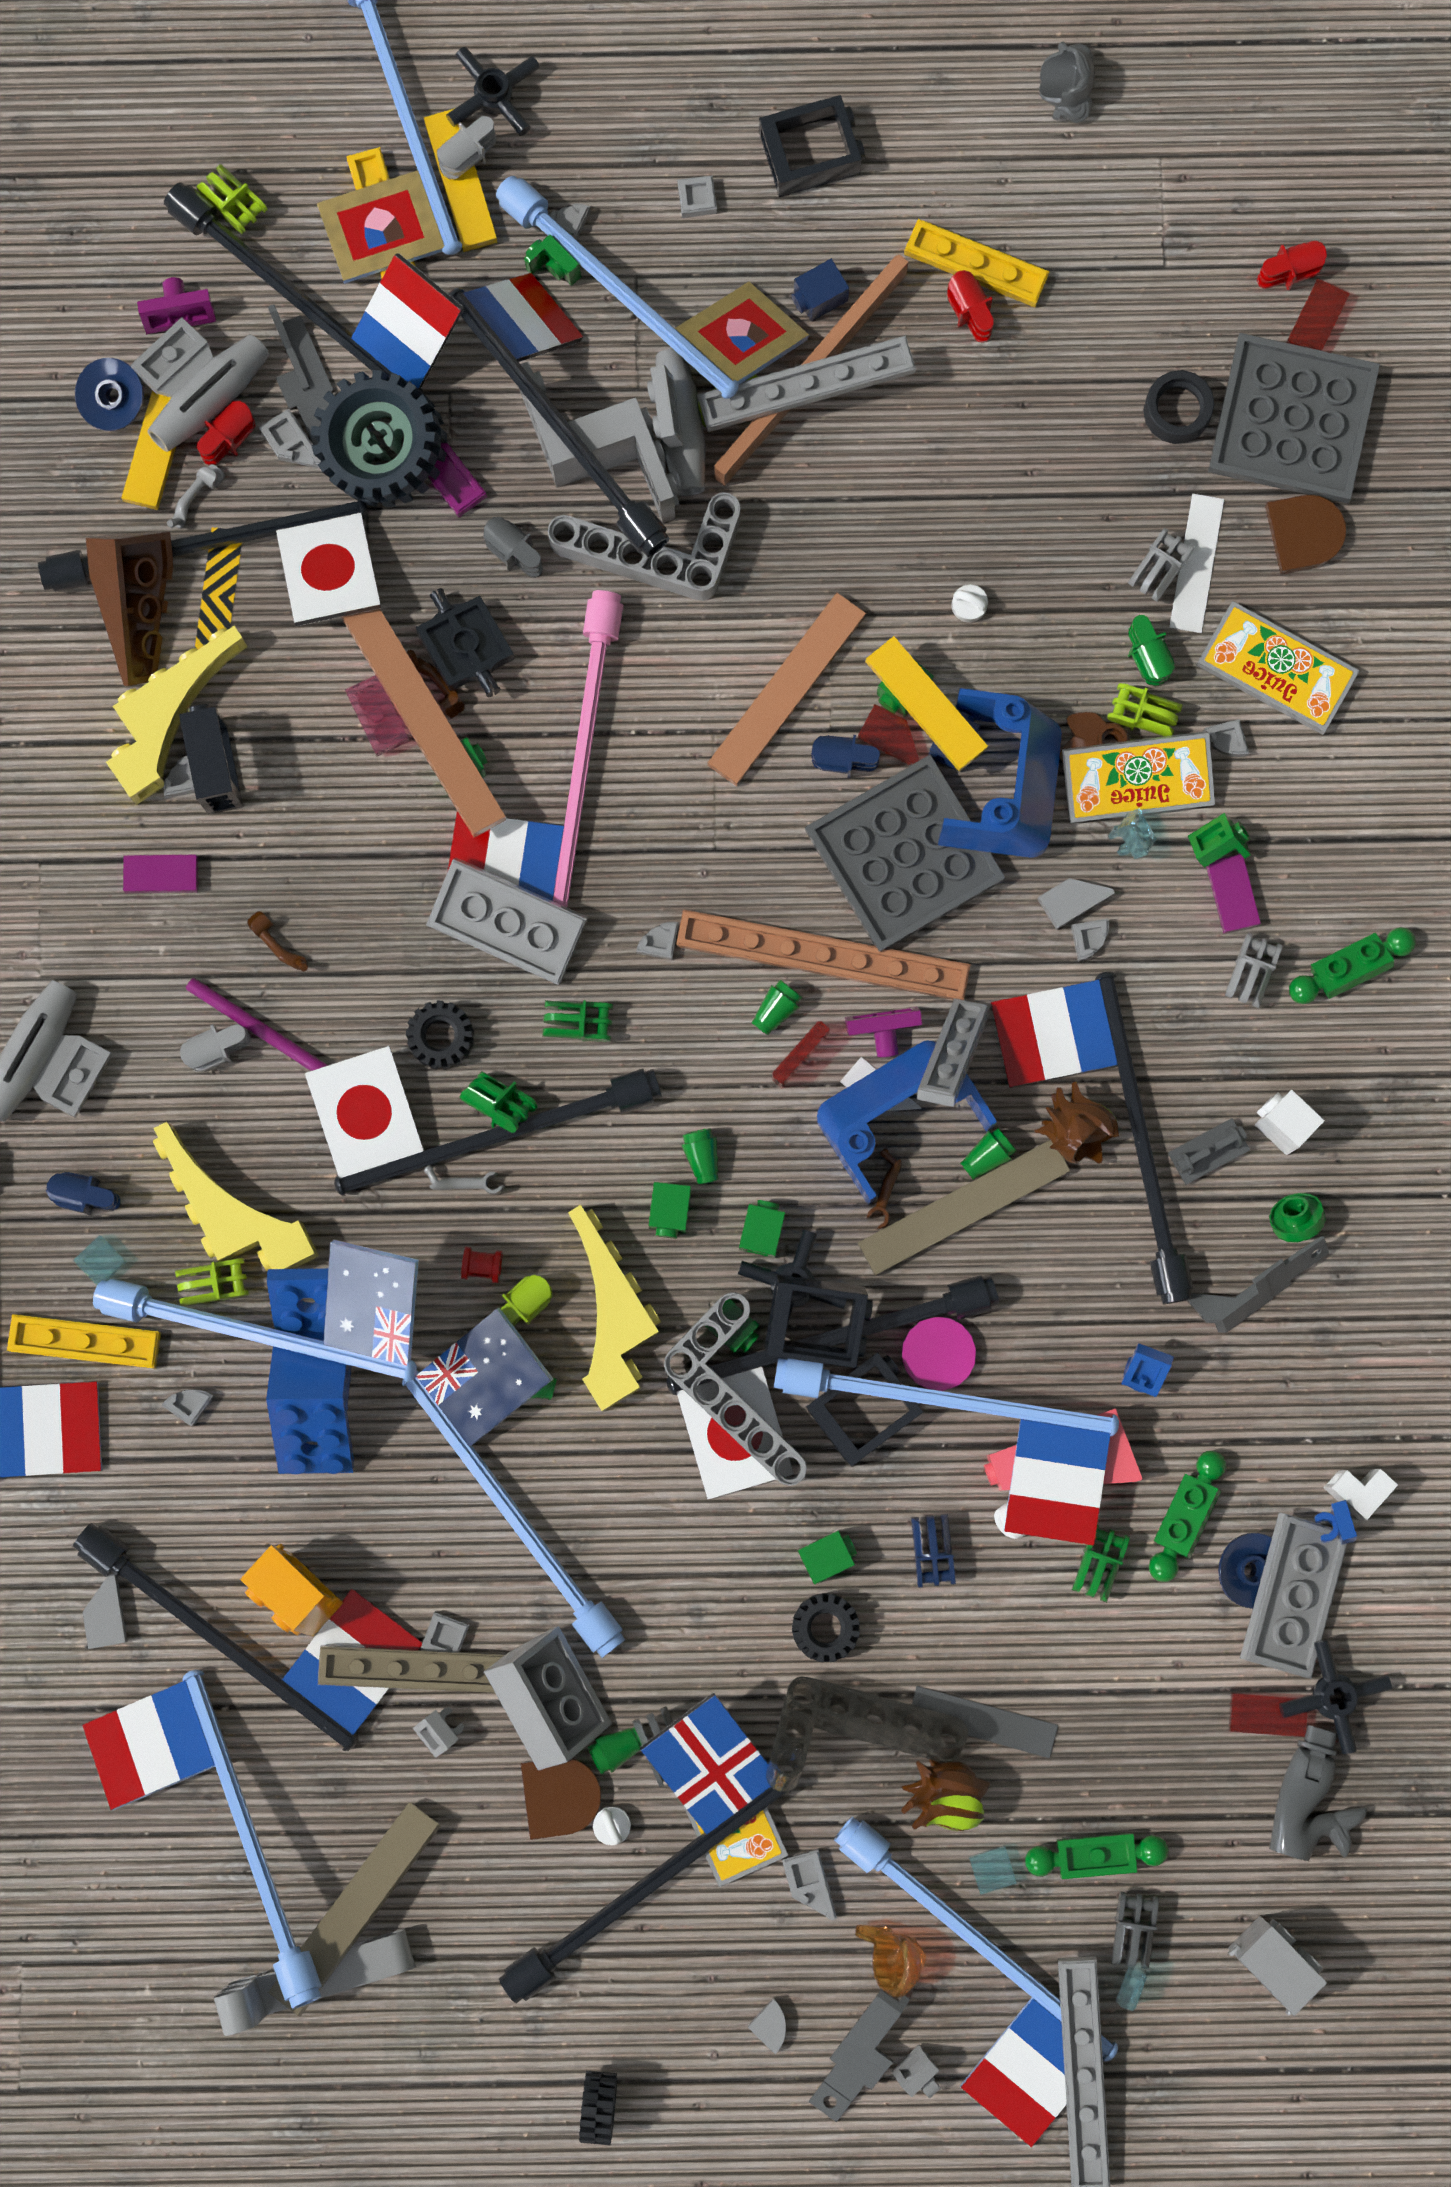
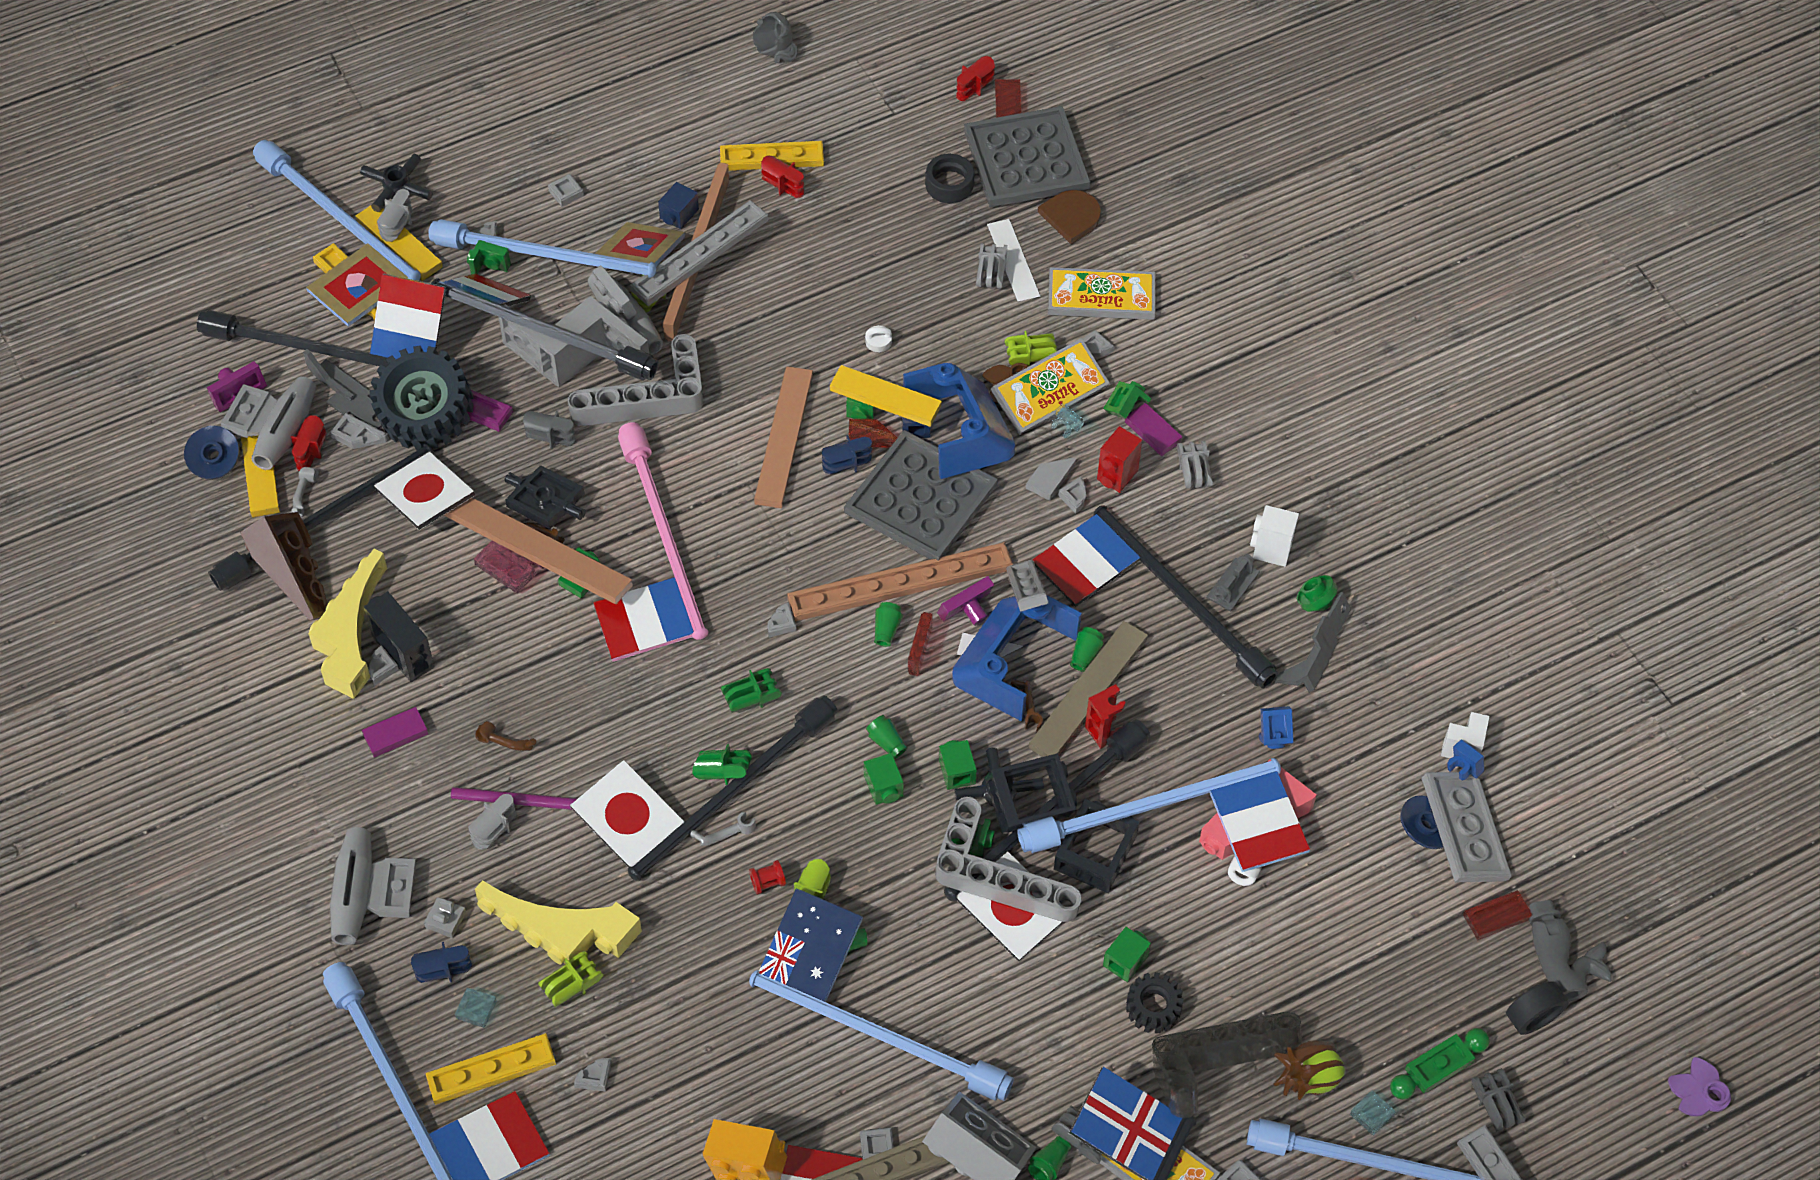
camera: 30 degrees left, 25 degrees down
(114, 1136) = (445, 917): none -> light grey tile
(218, 591) = (347, 540): sticker -> none
(233, 200) = (246, 308): lime arm -> none
(306, 1392) = (679, 995): blue bracket -> none
(365, 1316) = (705, 925): flag -> none
(435, 1013) = (652, 729): black tyre -> none
(507, 921) = (666, 651): light grey tile -> none
(620, 1317) = (887, 863): light yellow arch -> none
(819, 174) = (626, 155): black window -> none
(934, 1576) = (1200, 912): dark blue arm -> none
(938, 1353) = (1124, 784): dark pink tile -> none
(950, 1261) = (1101, 714): none -> red hinge
(992, 1723) = (1323, 1012): dark grey sticker -> none
(1078, 1126) = (1138, 599): reddish brown hair -> none
(1108, 1538) = (1324, 867): green arm -> none
(1131, 1988) = (1521, 1140): clear light blue tile -> none
(1150, 652) = (1013, 314): green arm -> none
(1160, 927) = (1119, 459): none -> red brick
(1187, 1516) = (1361, 812): green plate -> none
(1237, 1855) = (1537, 1007): none -> black tyre
(1285, 1972) = (1612, 1066): light grey brick -> none
(1324, 1689) = (1535, 877): black bar -> none
(1352, 965) = (1257, 435): green plate -> none
(1362, 2023) = (1697, 1086): none -> medium lavender plate

